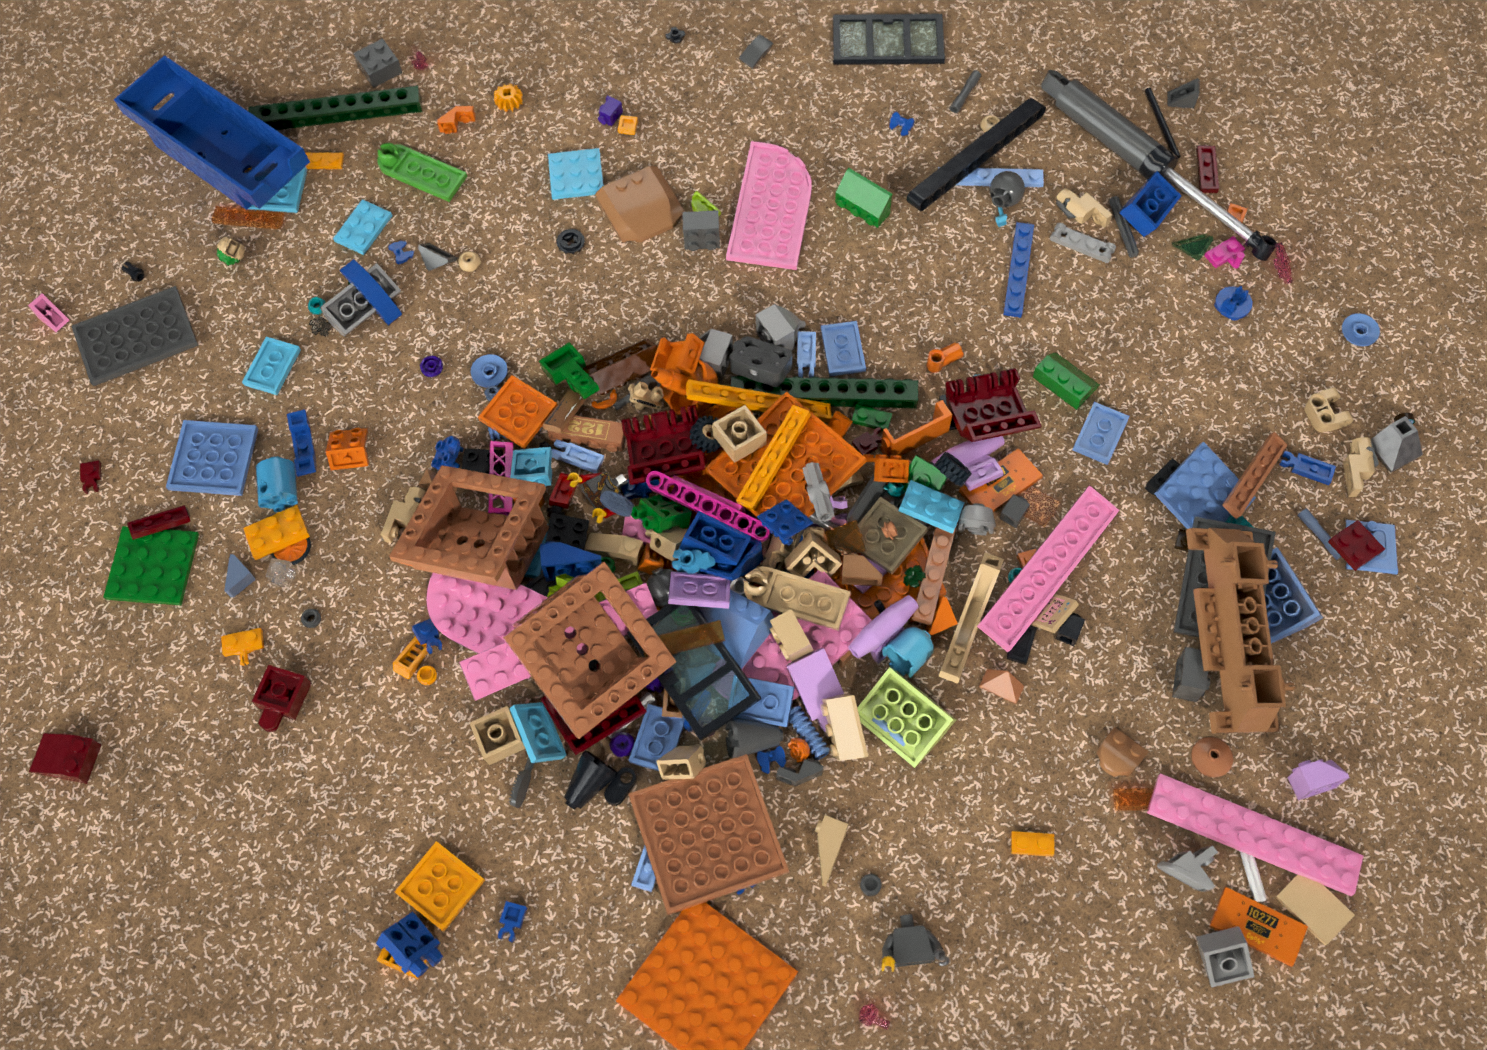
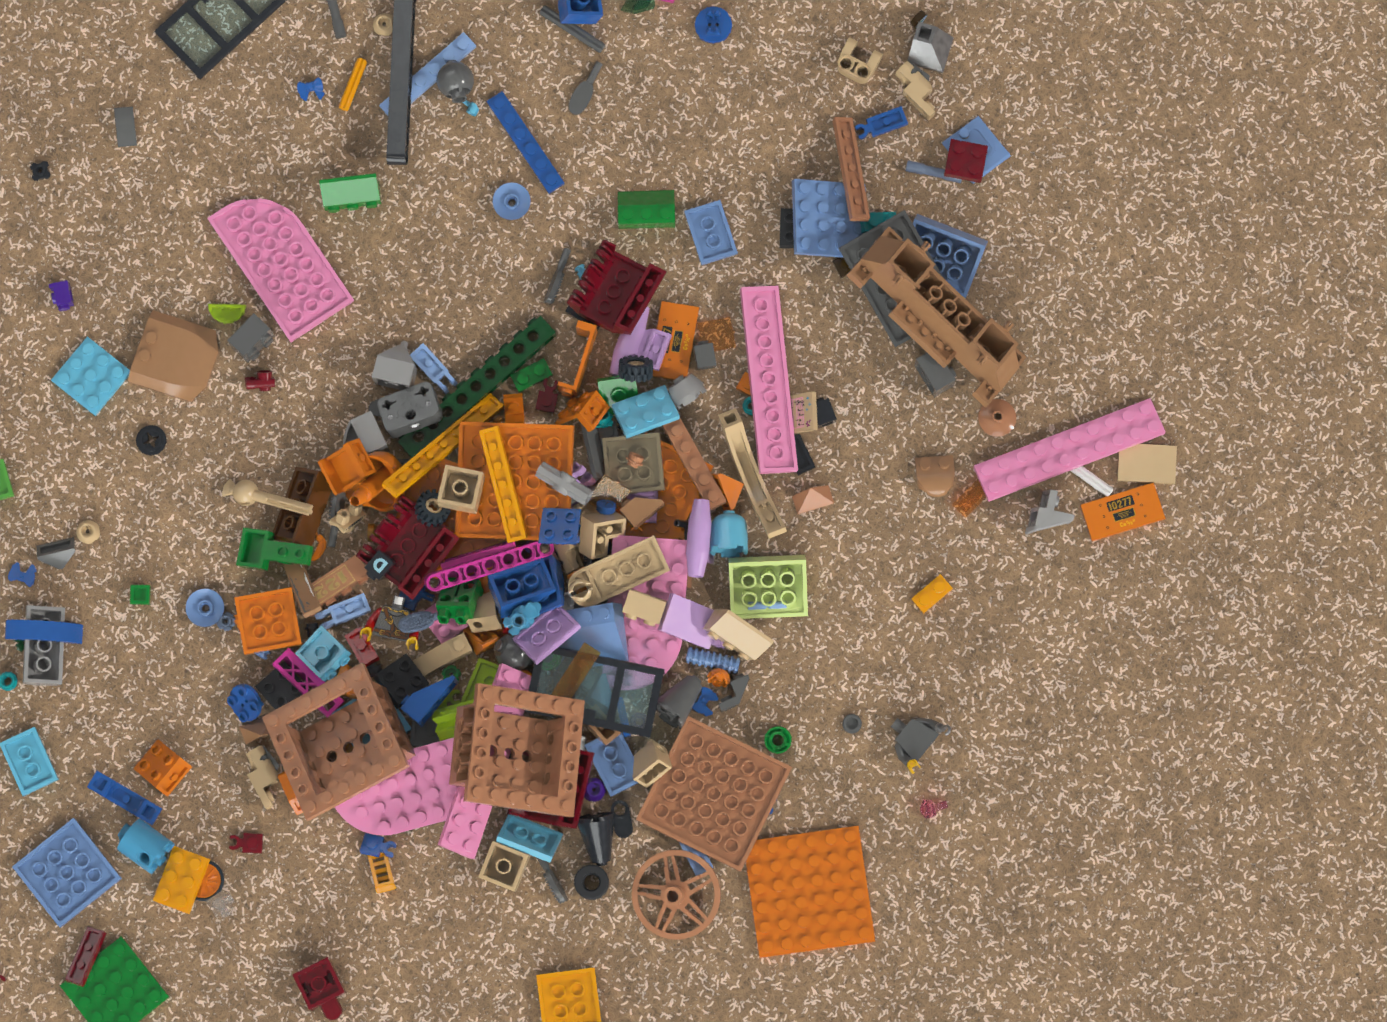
camera: 45 degrees left, 15 degrees up
(237, 577) = (191, 936): sand blue slope -> none
(242, 644) = (248, 979): light orange plate -> none
(307, 614) = (273, 910): dark grey plate -> none
(320, 325) = (30, 695): clear smoke plant -> none
(347, 552) = (251, 843): none -> dark red plate
(427, 675) = (406, 873): light orange plate -> none
(428, 362) = (149, 642): dark purple plate -> none
(457, 327) = (140, 594): none -> green plate
(512, 918) = (638, 972): blue plate -> none
(554, 823) = (591, 870): none -> black tyre
(596, 324) = (247, 493): none -> tan piece
(601, 883) = (676, 894): none -> nougat wheel
(627, 125) = (89, 293): light orange plate -> none
(631, 441) = (379, 565): none -> black brick
(683, 266) = (263, 381): none -> dark red plate
(774, 706) = (674, 661): medium blue plate -> none
(795, 831) = (777, 749): none -> green wheel
(829, 840) = (799, 722): tan slope -> none
(835, 545) = (605, 507): none -> blue tile
(843, 348) = (456, 337): medium blue plate -> none
(913, 576) = (681, 476): dark green plant -> none
(932, 142) = (352, 84): none -> light orange axle
(944, 357) = (539, 273): orange piece -> none
(953, 371) = (557, 277): none -> dark grey piece
(974, 289) = (509, 192): none -> medium blue dish
(1082, 208) = (527, 43): tan plate -> none
(1082, 243) = (553, 73): light grey plate -> none
(1093, 270) = (584, 92): none -> dark grey piece
(1225, 956) = (1118, 554): light grey slope -> none
(1316, 778) = (1076, 374): lavender slope -> none

